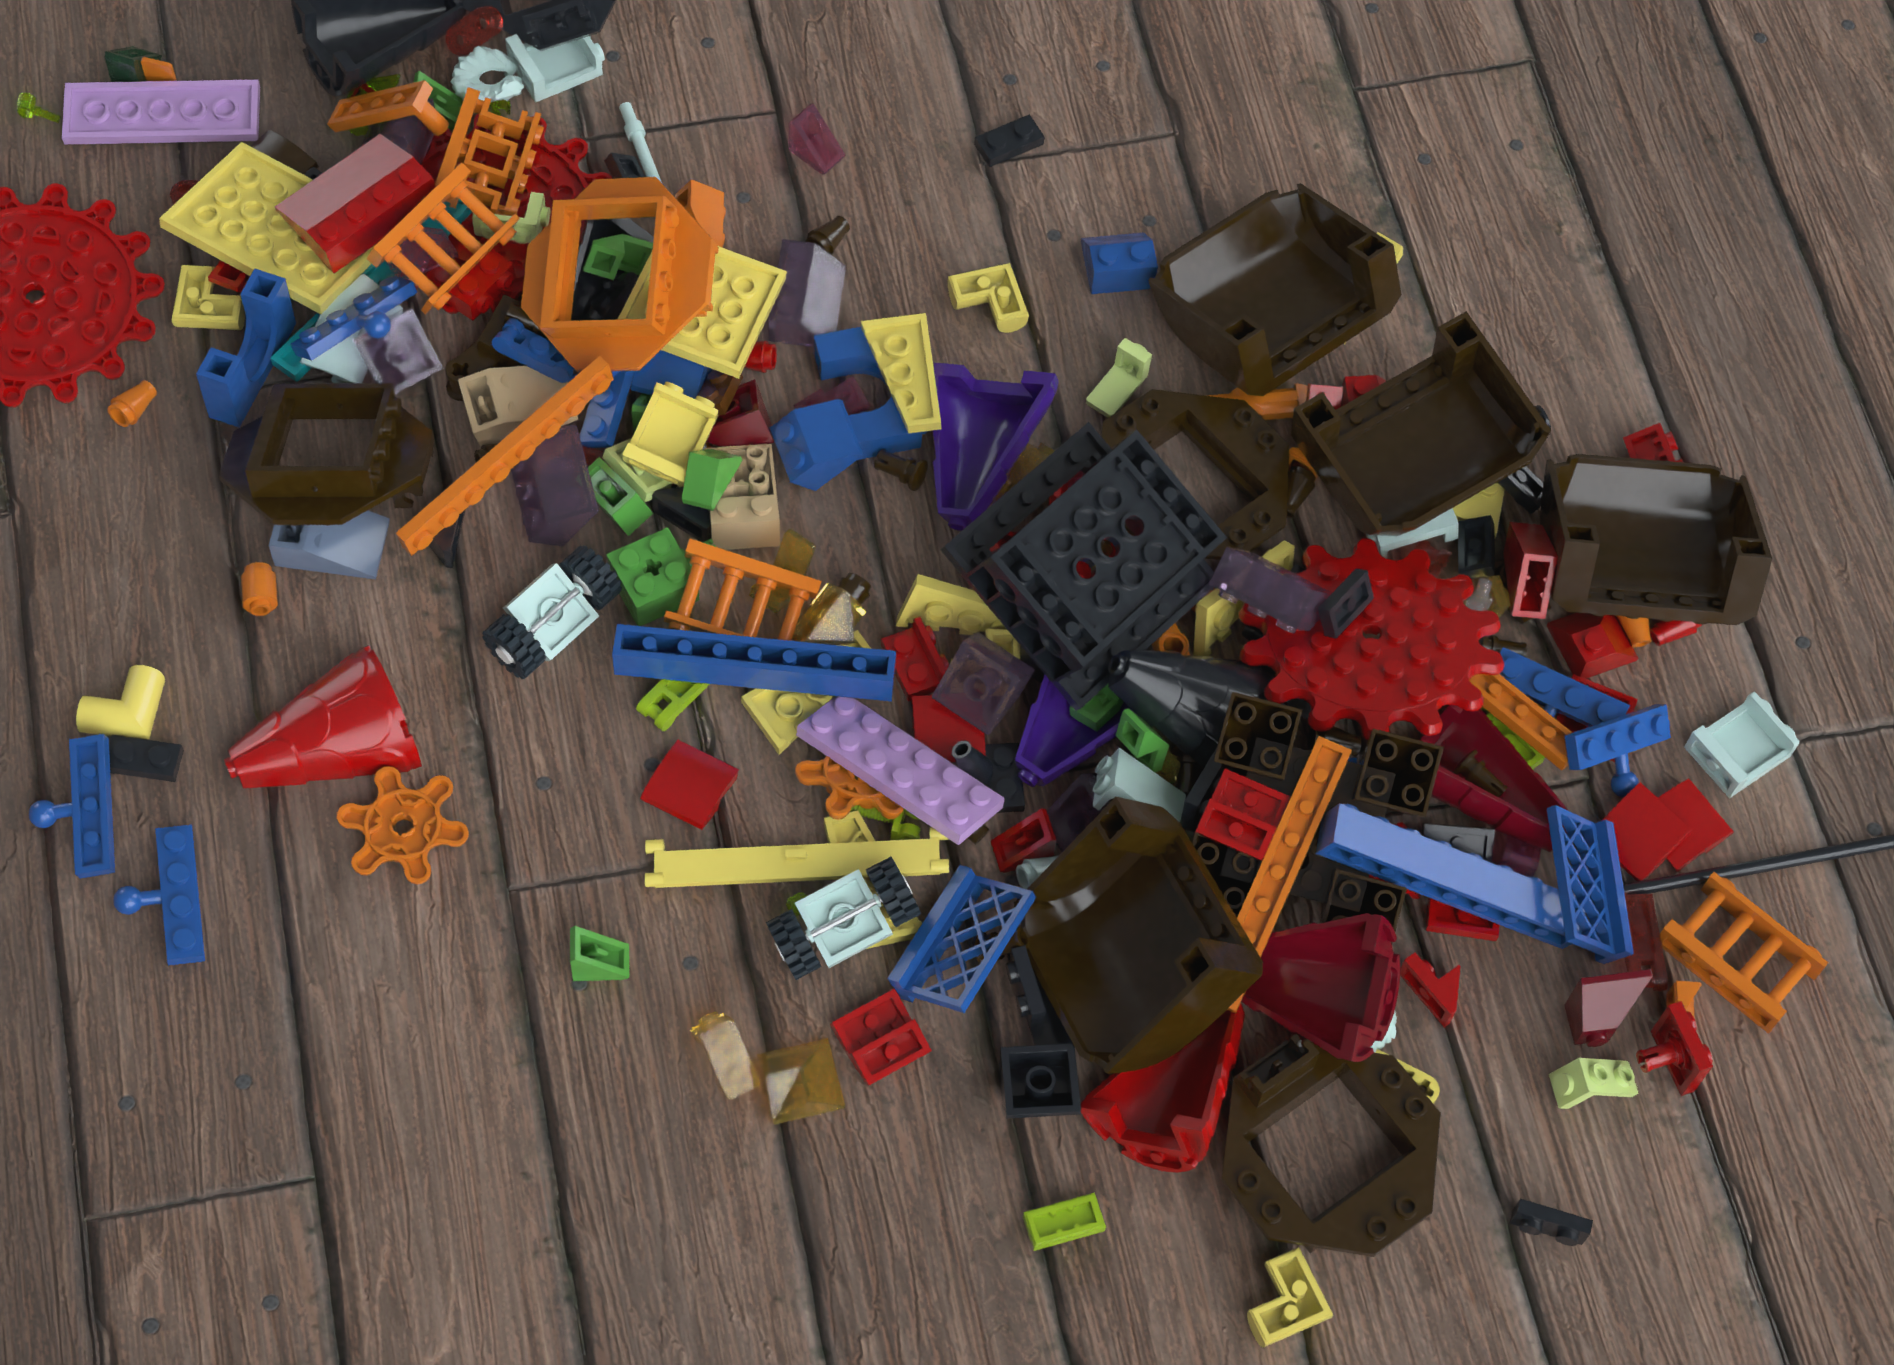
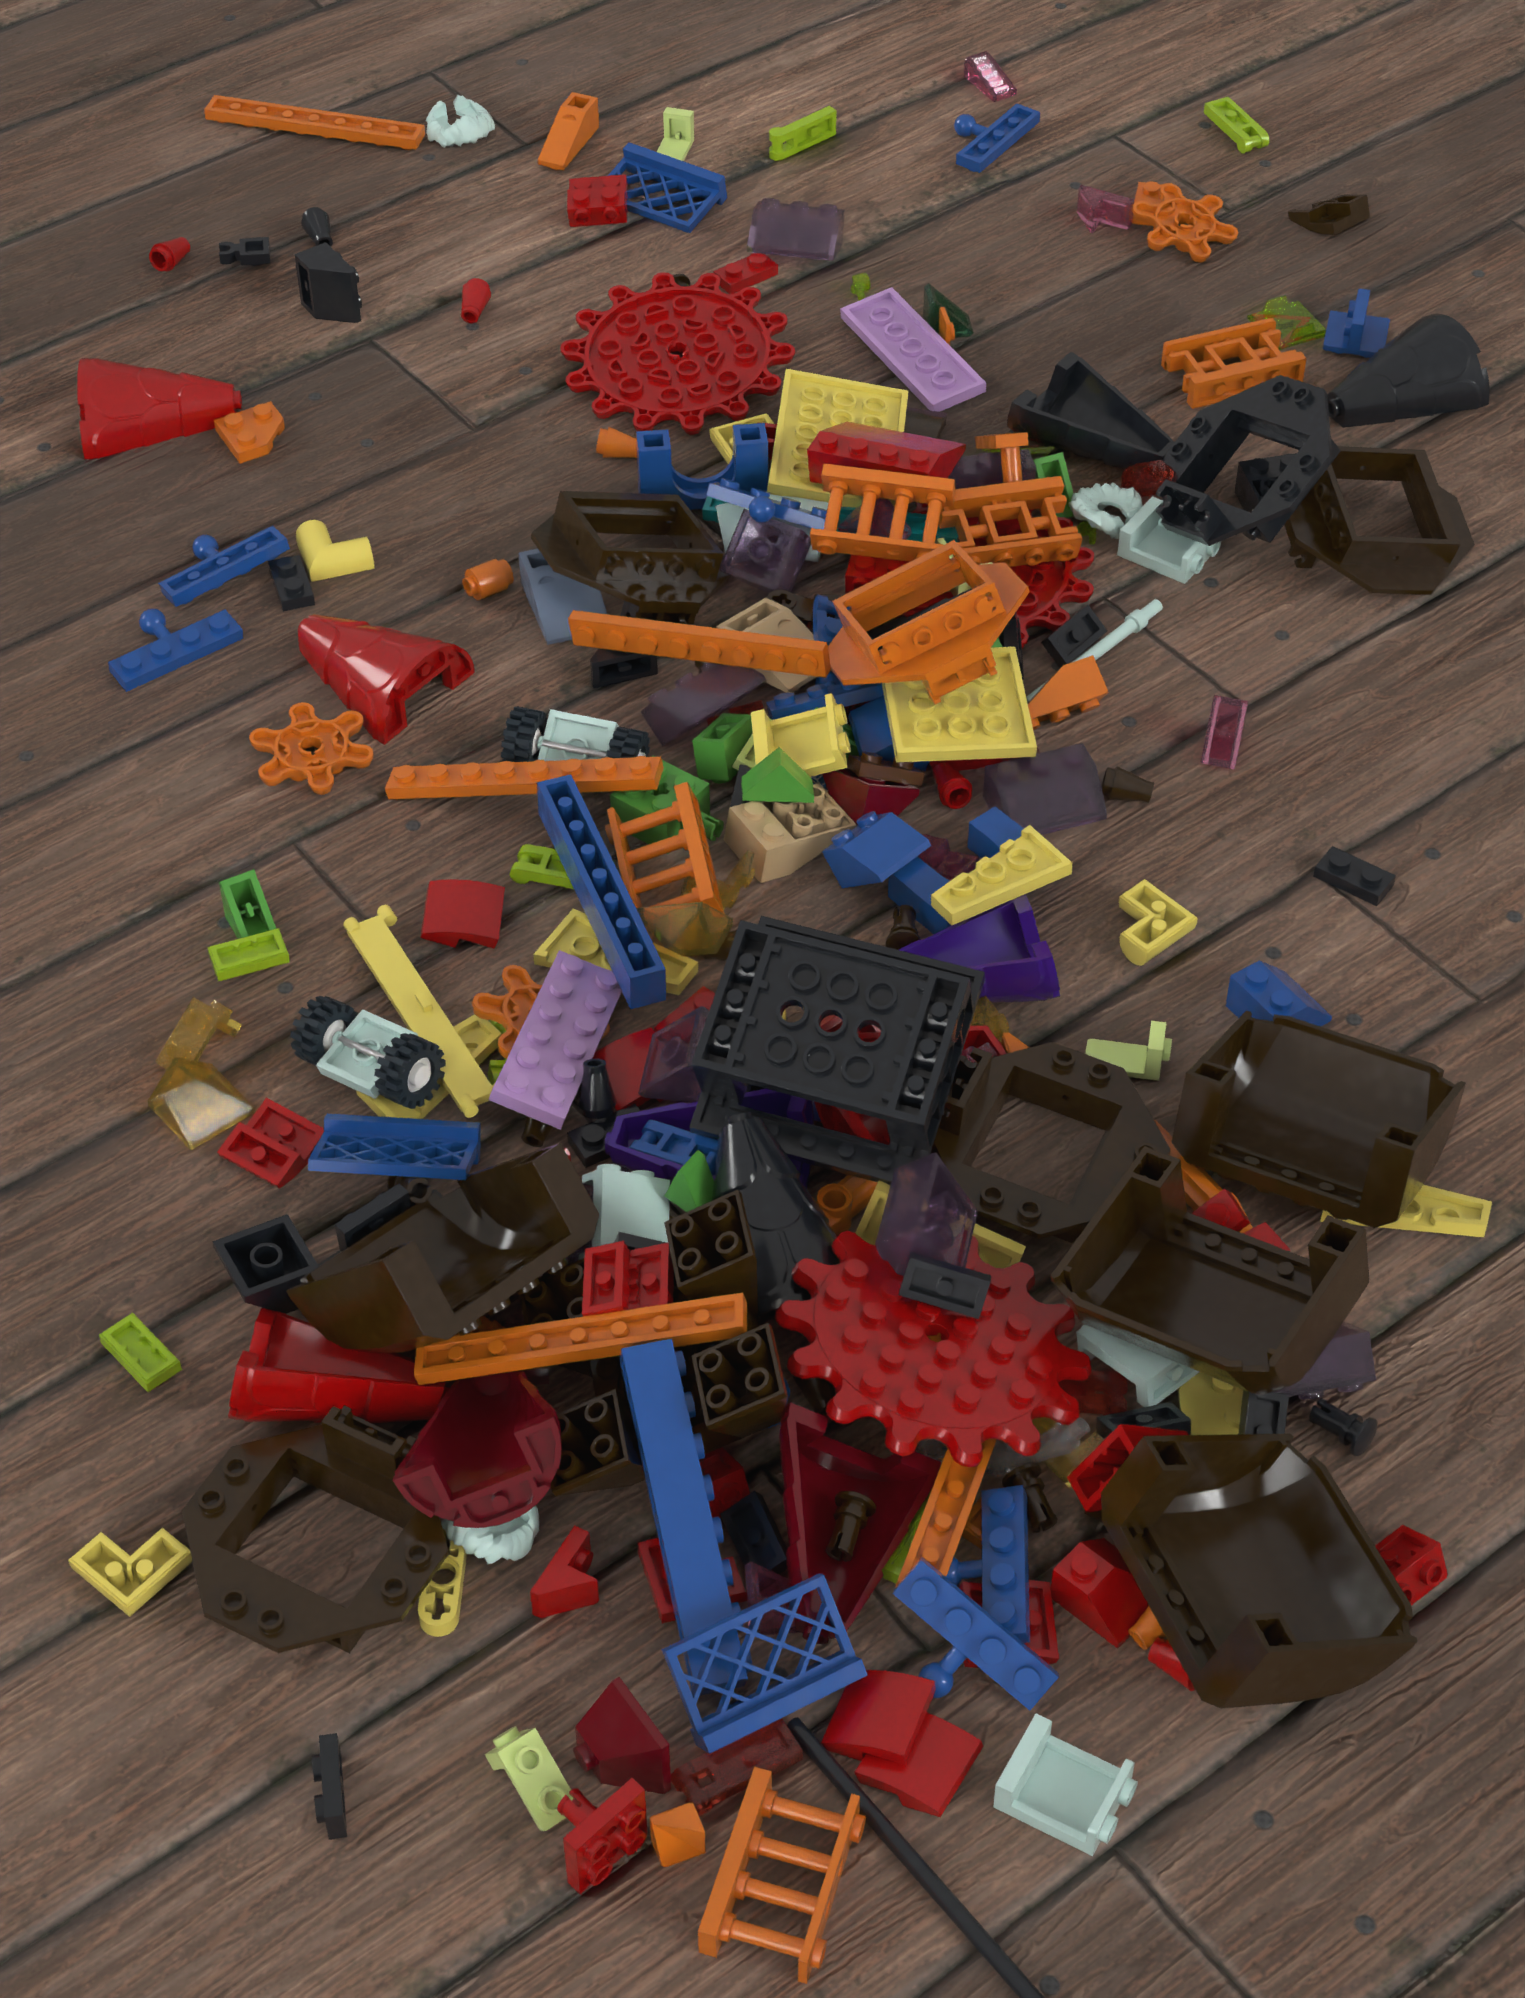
camera: 70 degrees right, 15 degrees down
(566, 668) = (522, 777): none -> orange plate
(644, 976) = (248, 954): none -> lime plate
(1076, 730) = (675, 1144): none -> blue plate

